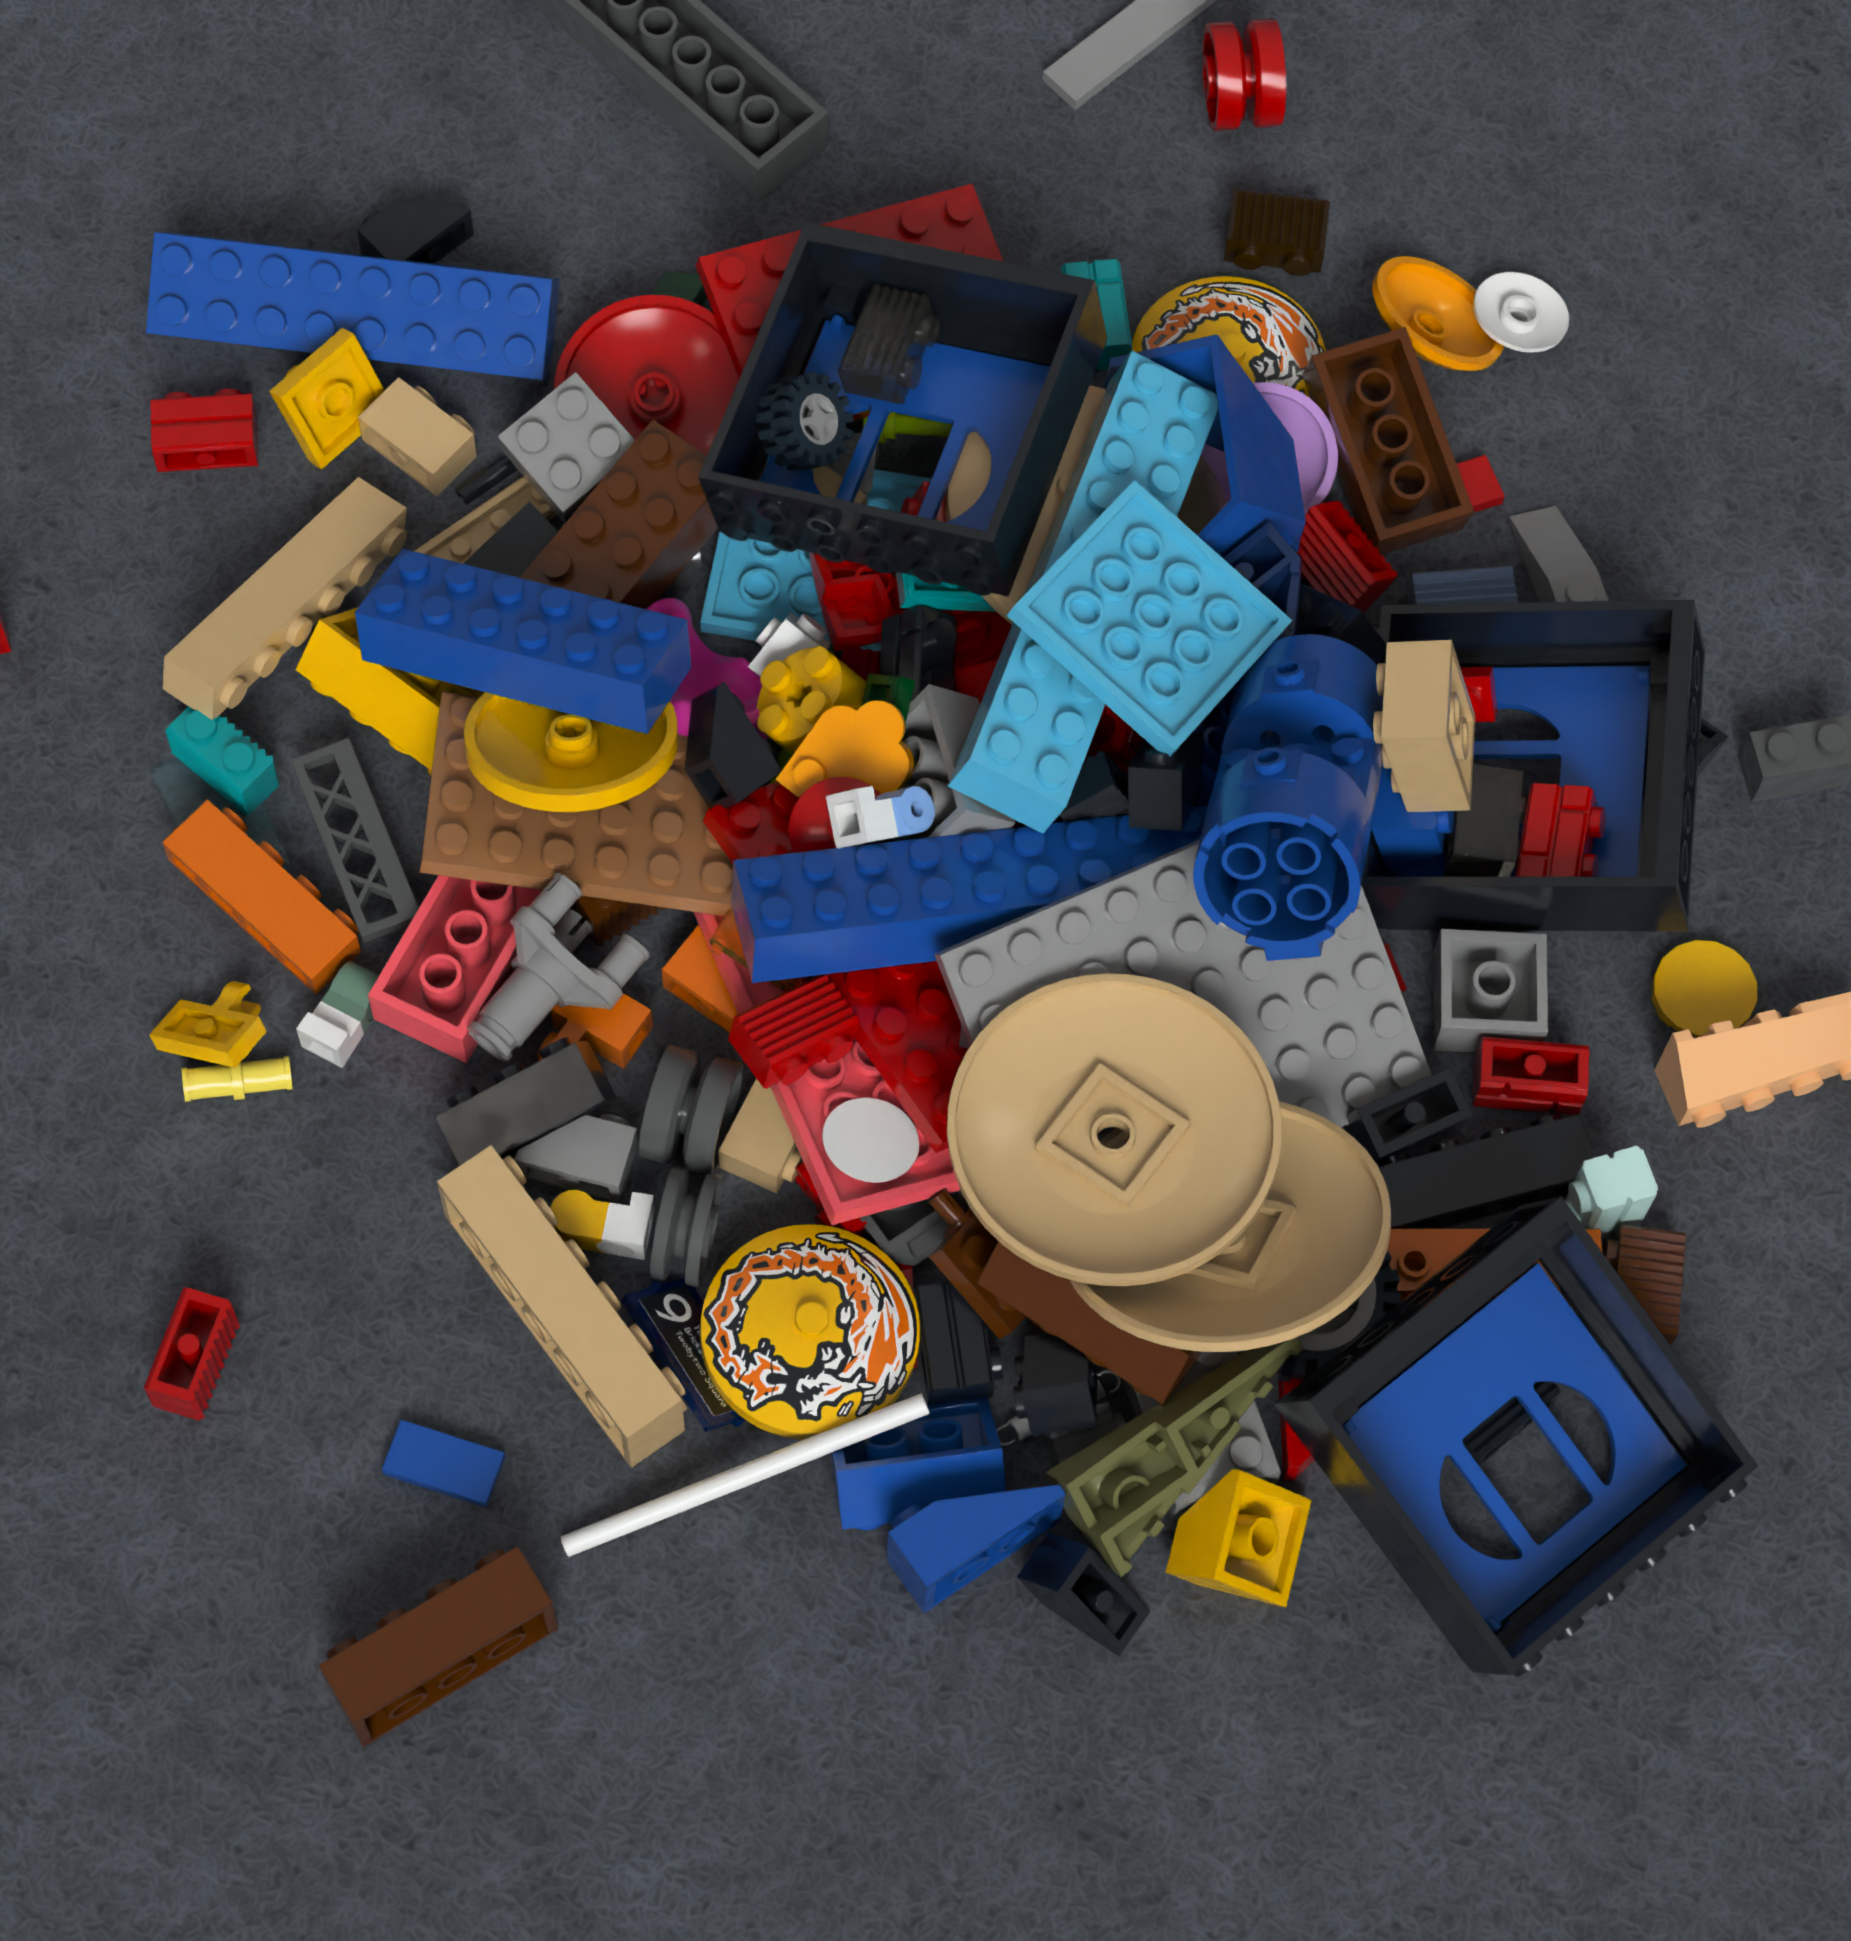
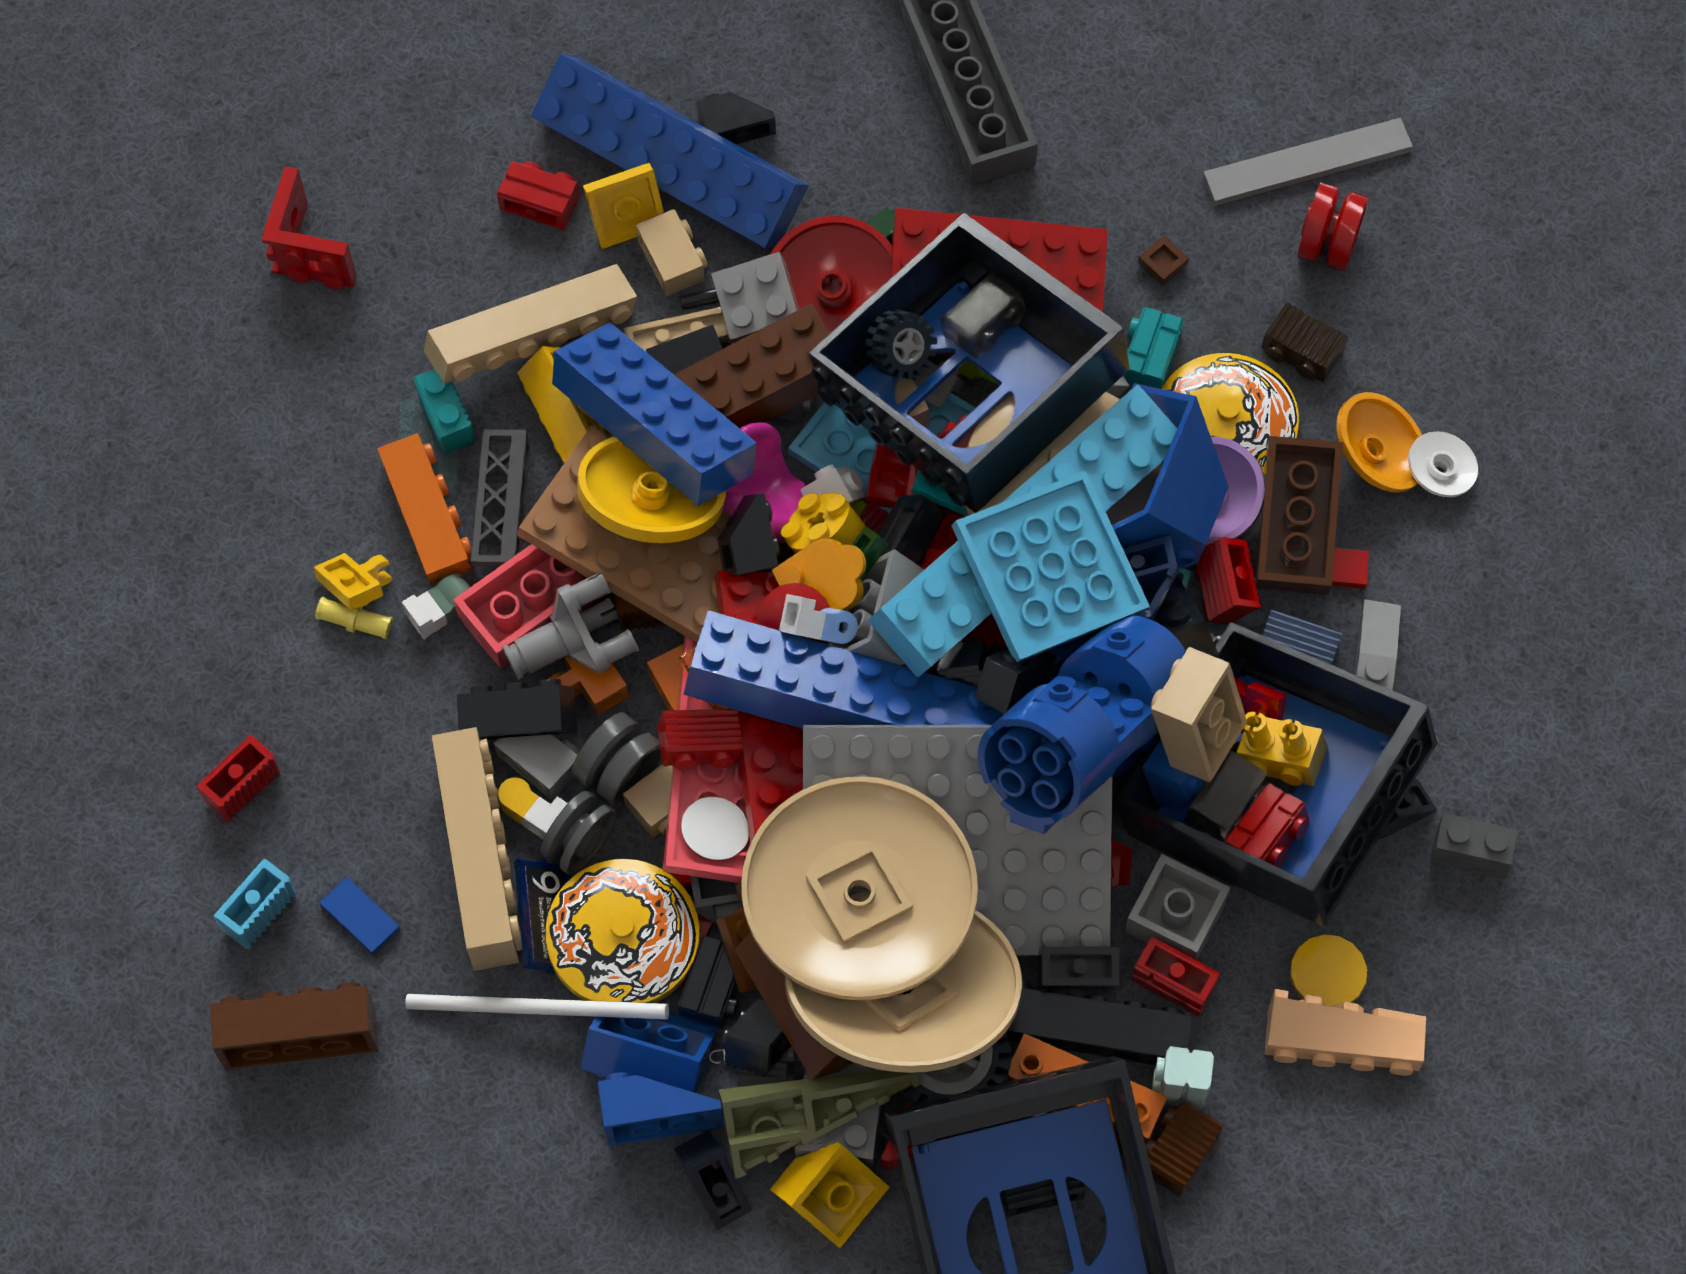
camera: 30 degrees right, 0 degrees up
(299, 1508) = (255, 904): none -> medium azure brick
(1050, 200) = (1163, 260): none -> reddish brown plate
(1526, 733) = (1283, 748): none -> yellow brick

